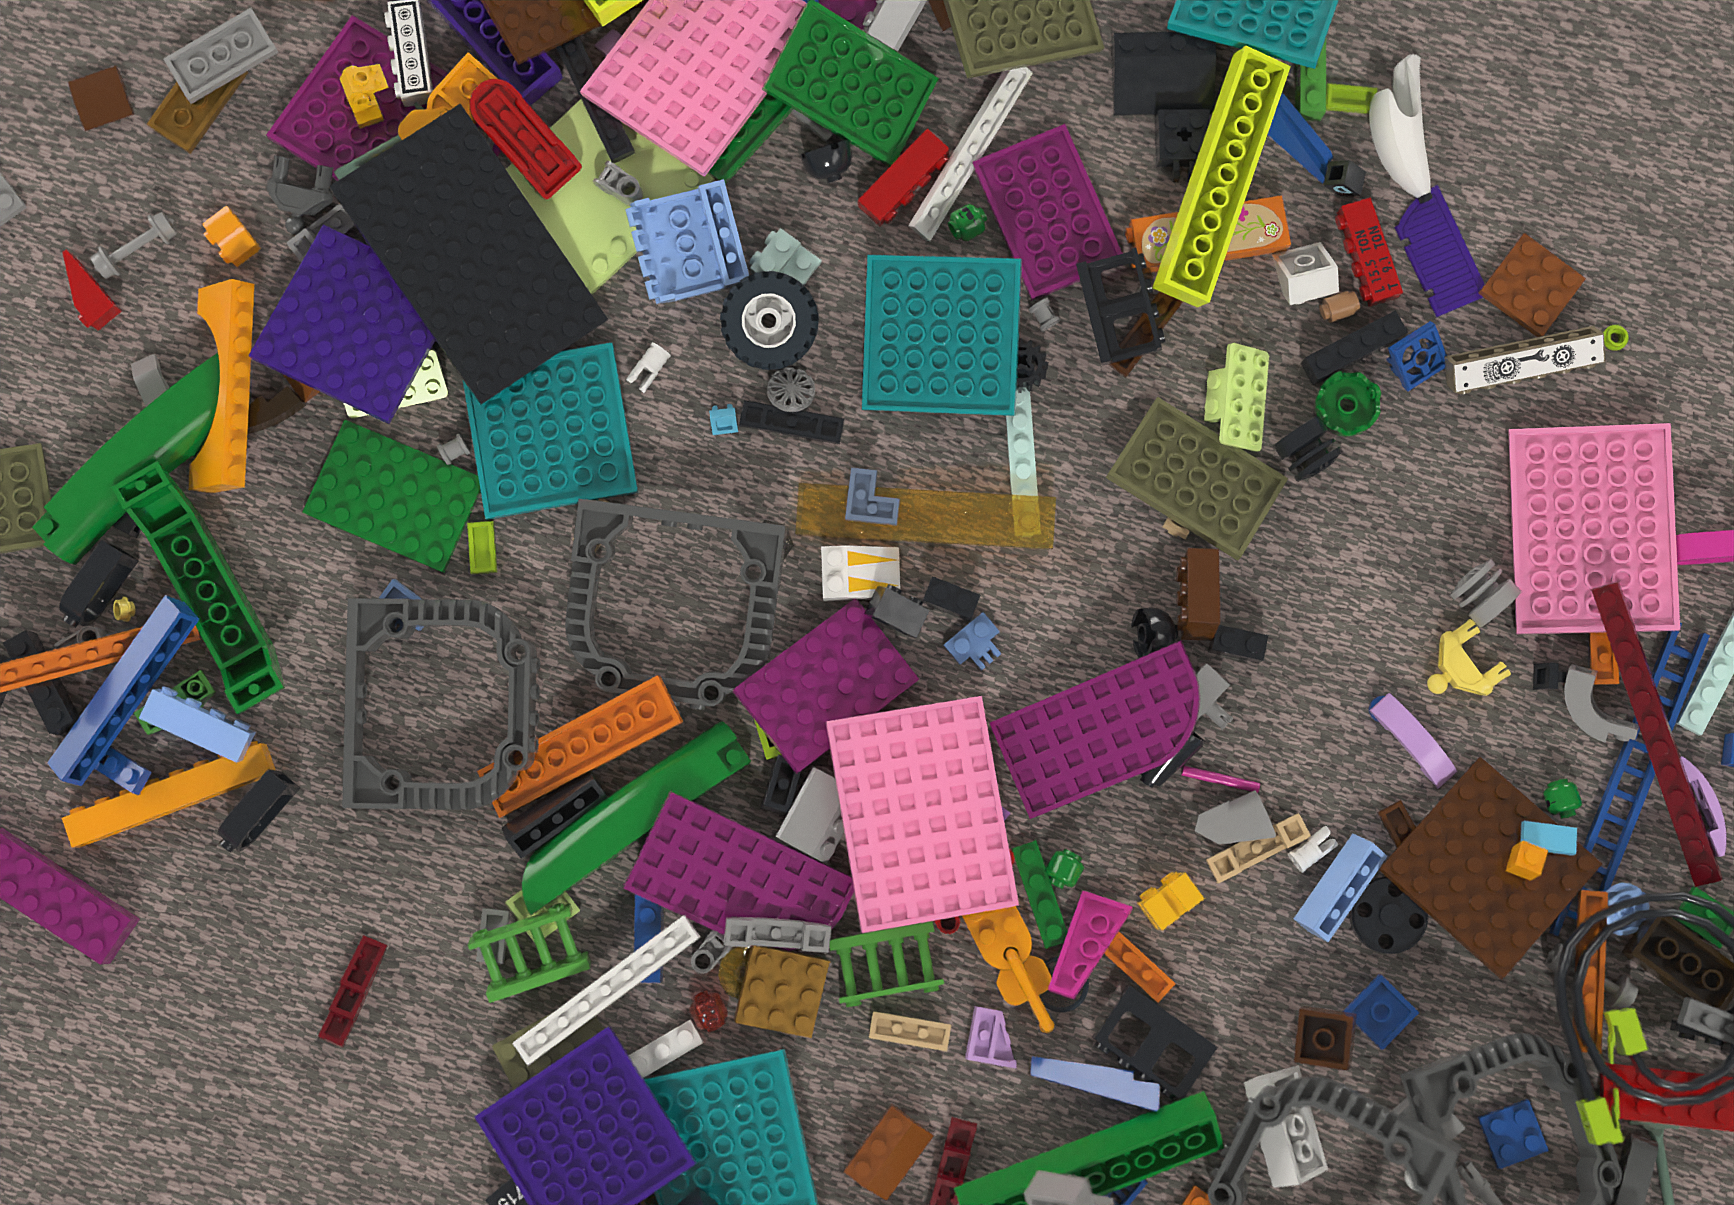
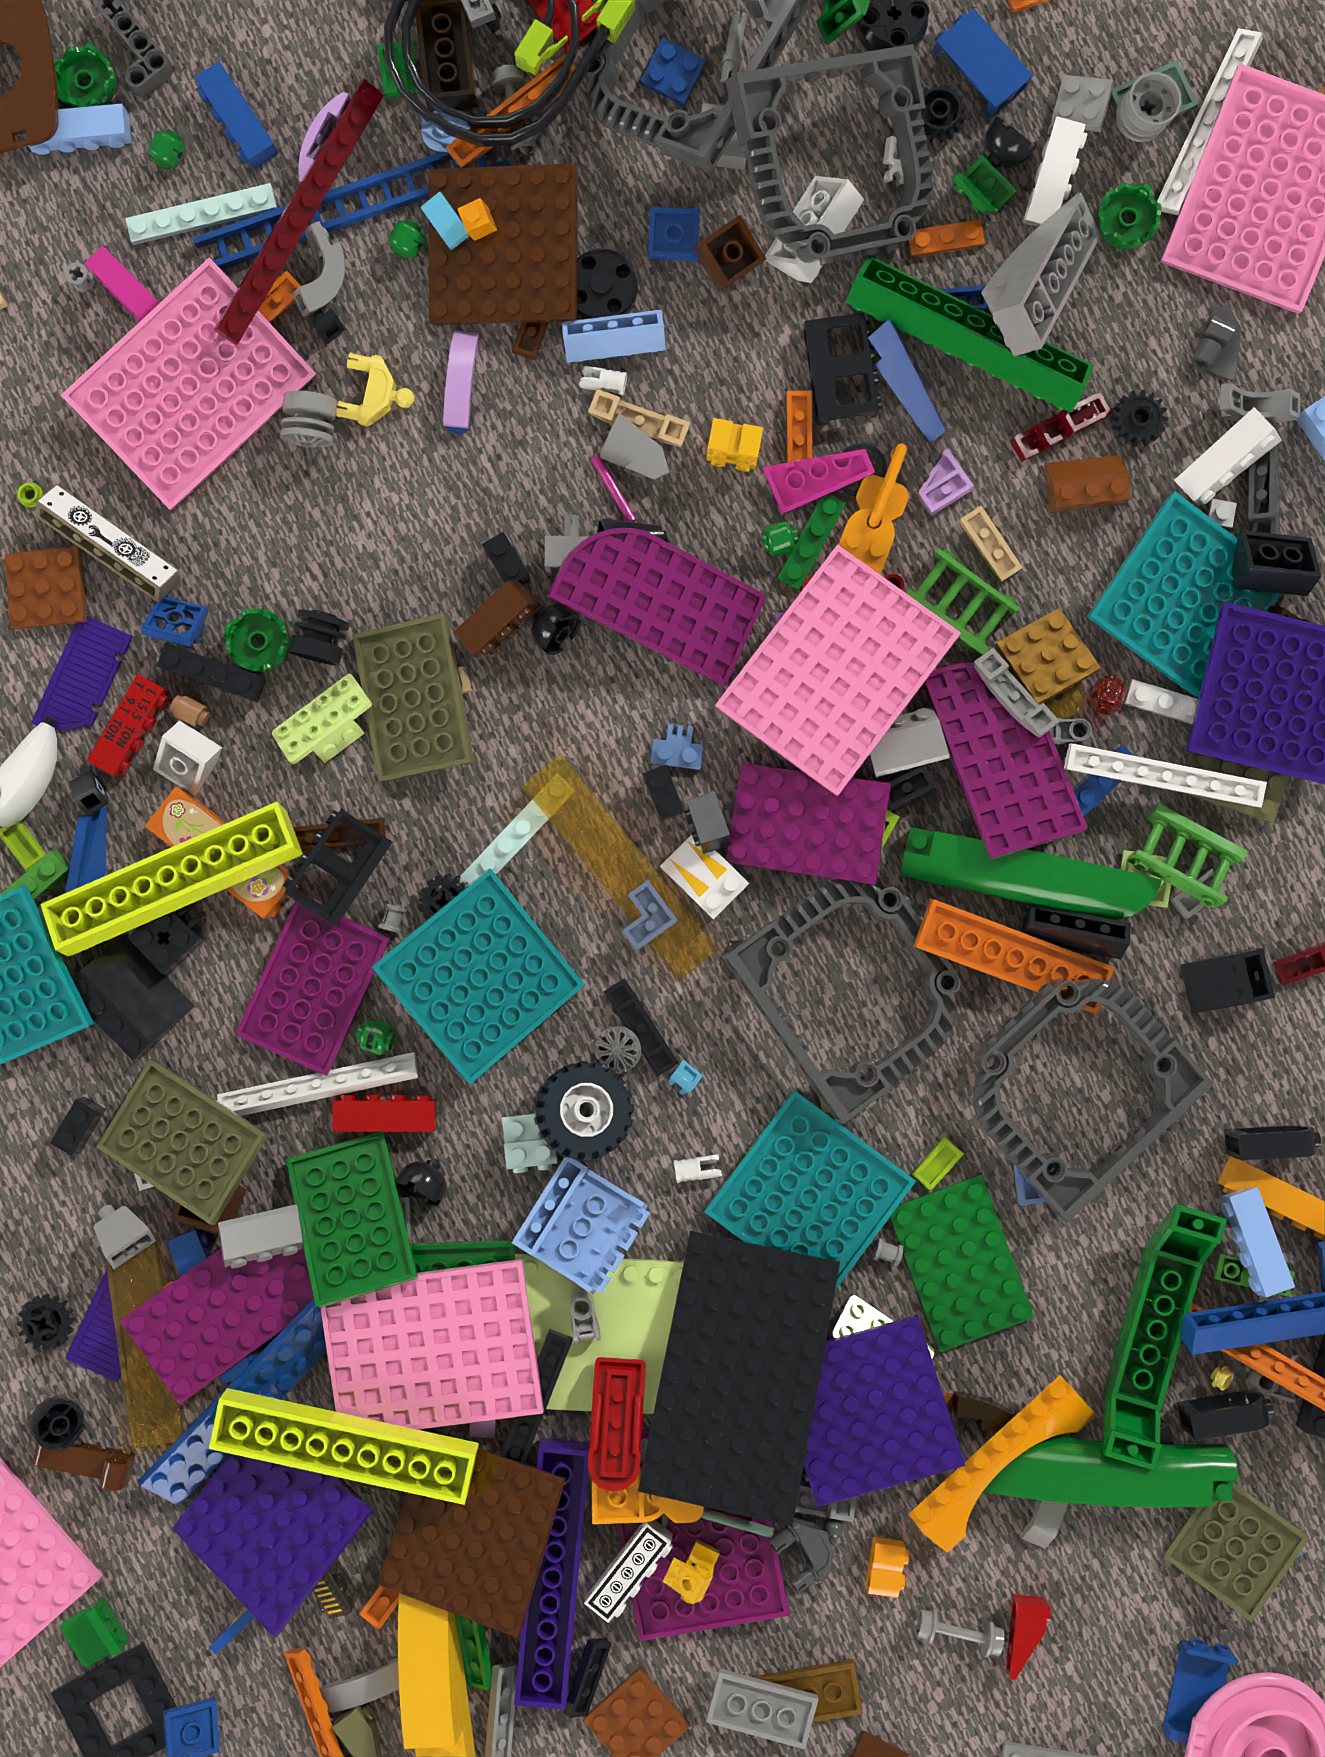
camera: 140 degrees left, 5 degrees up
(407, 894) = (1228, 980): none -> black slope

